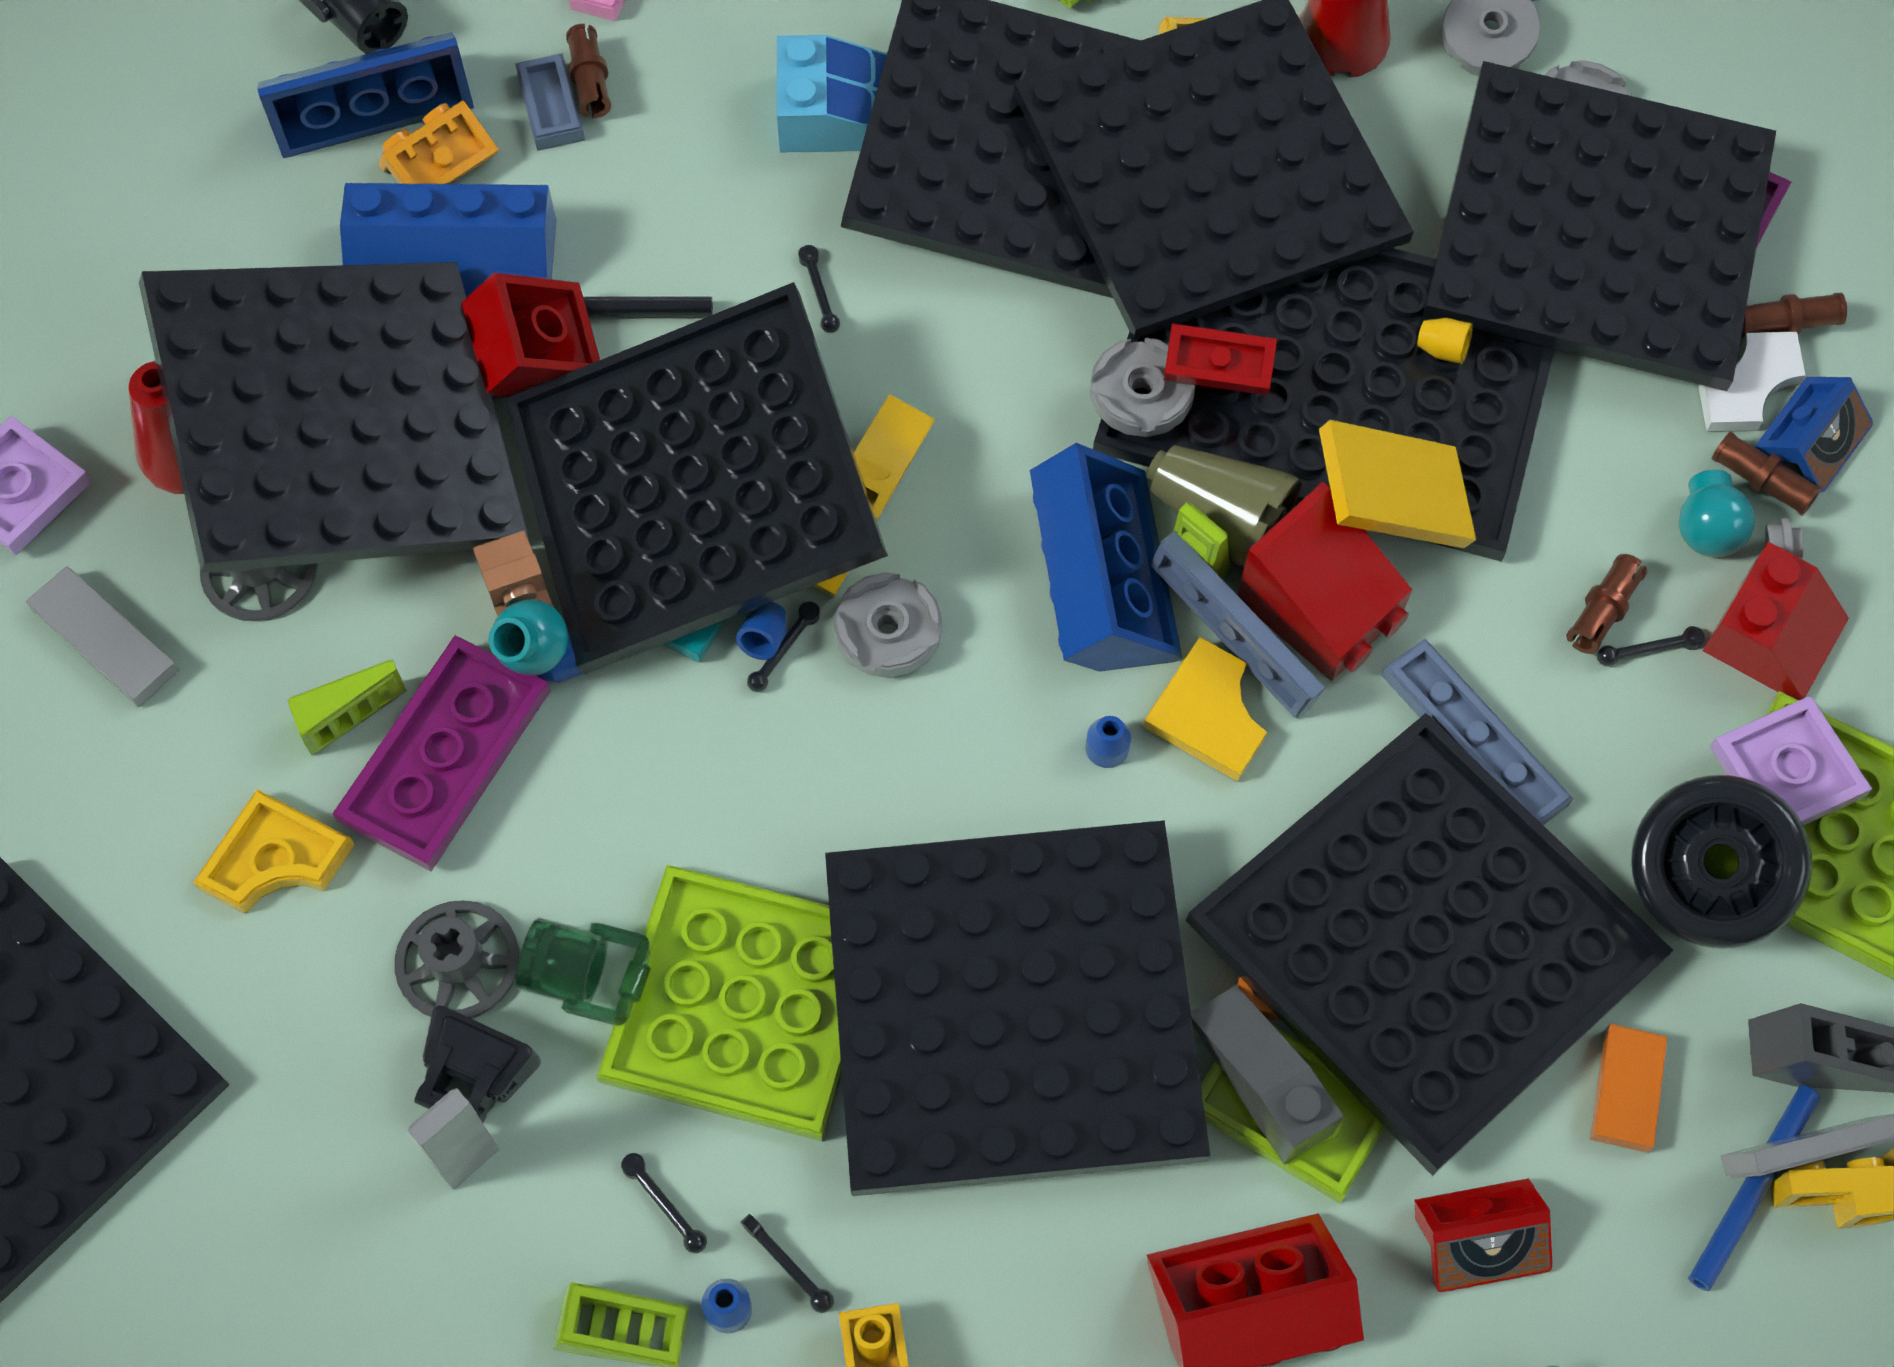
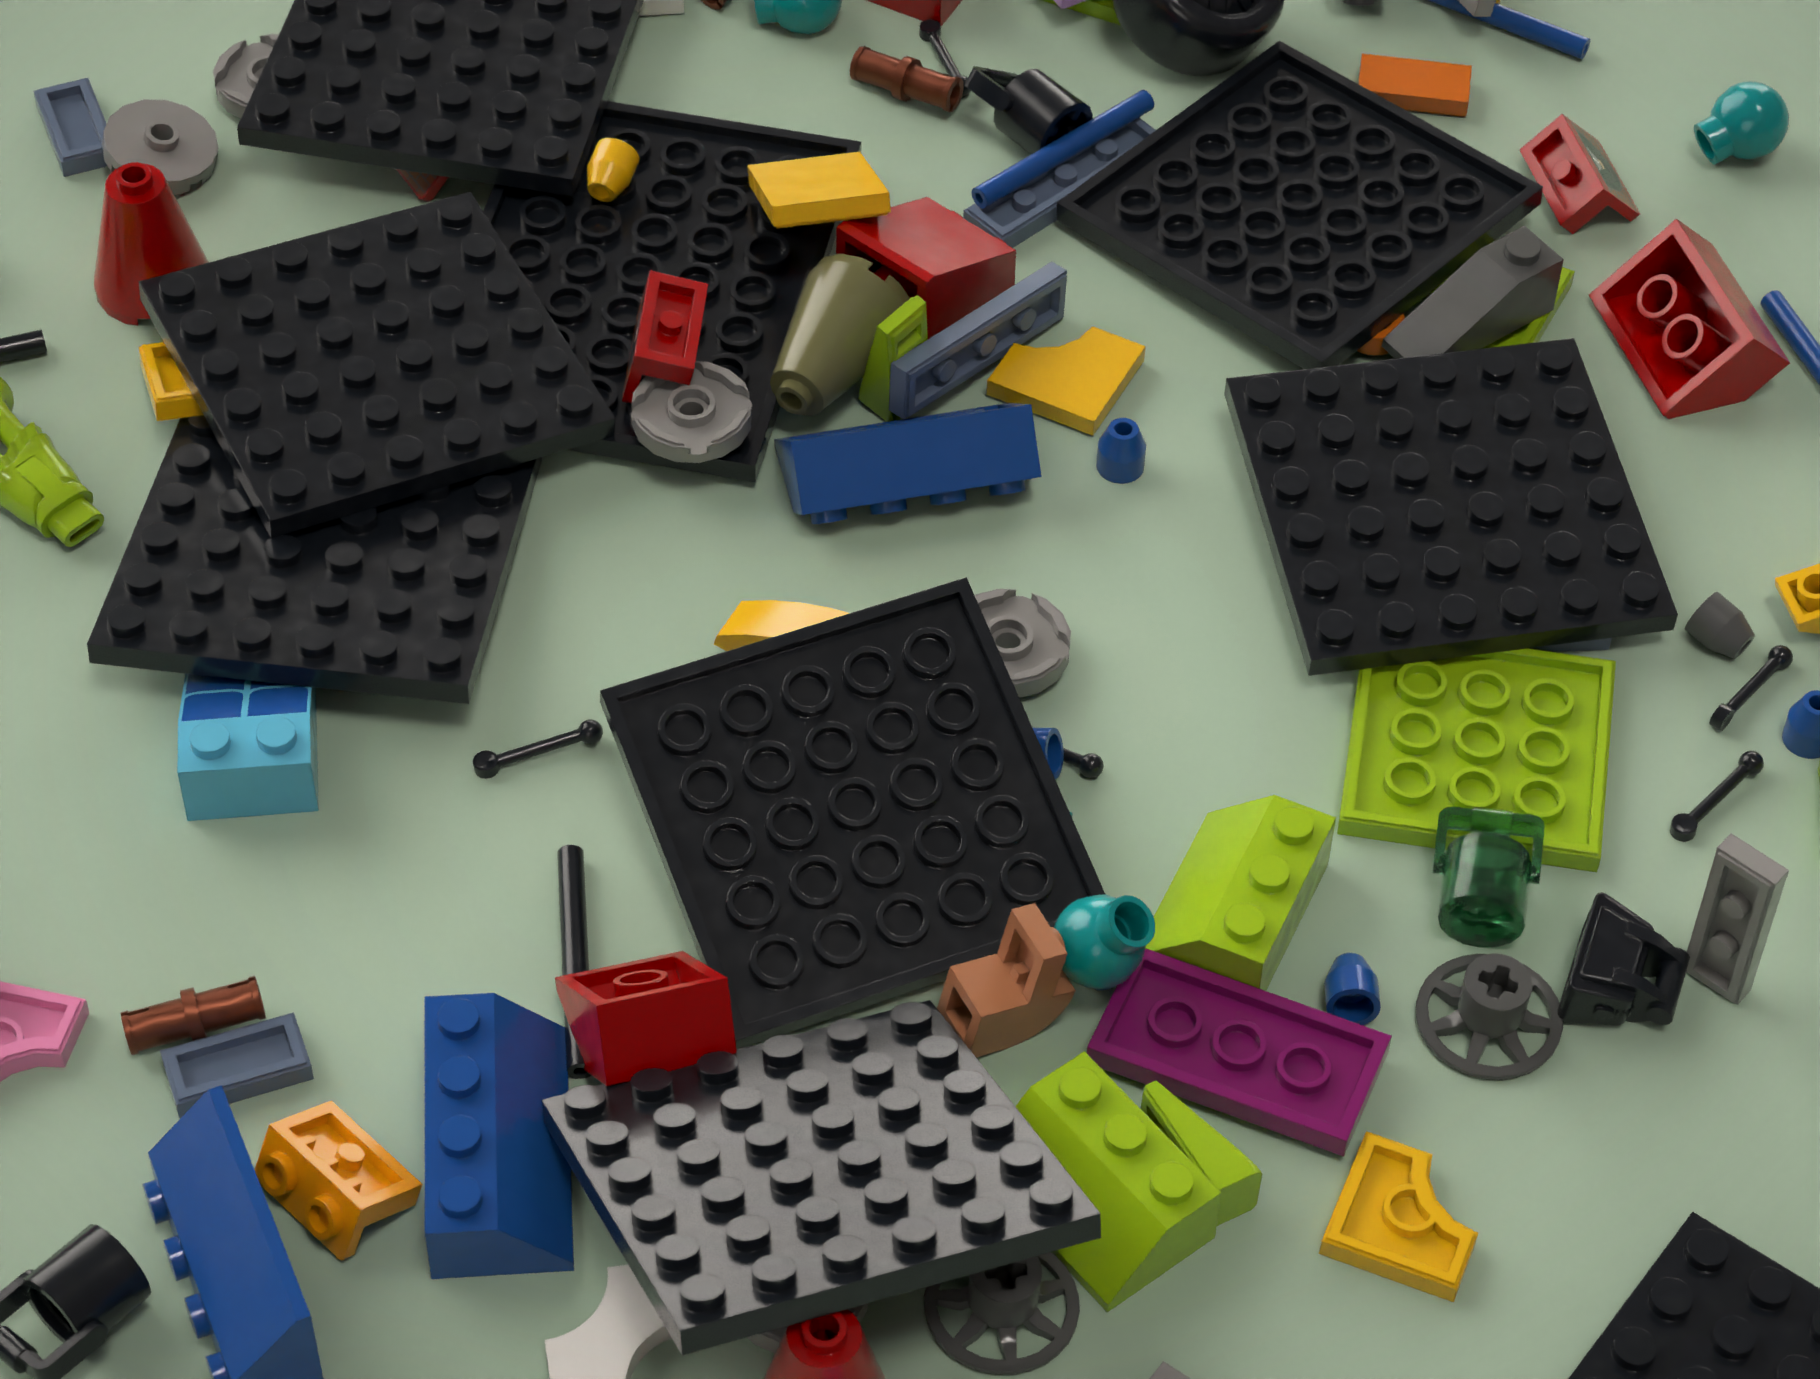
camera: 95 degrees left, 15 degrees down
(339, 633) = (1147, 1190): none -> lime slope
(492, 848) = (1352, 989): none -> blue hose
(589, 770) = (1244, 888): none -> lime slope
(855, 1246) = (1720, 626): none -> dark grey hose
(1502, 727) = (1062, 149): none -> blue piece
(1555, 704) = (1029, 105): none -> black piece

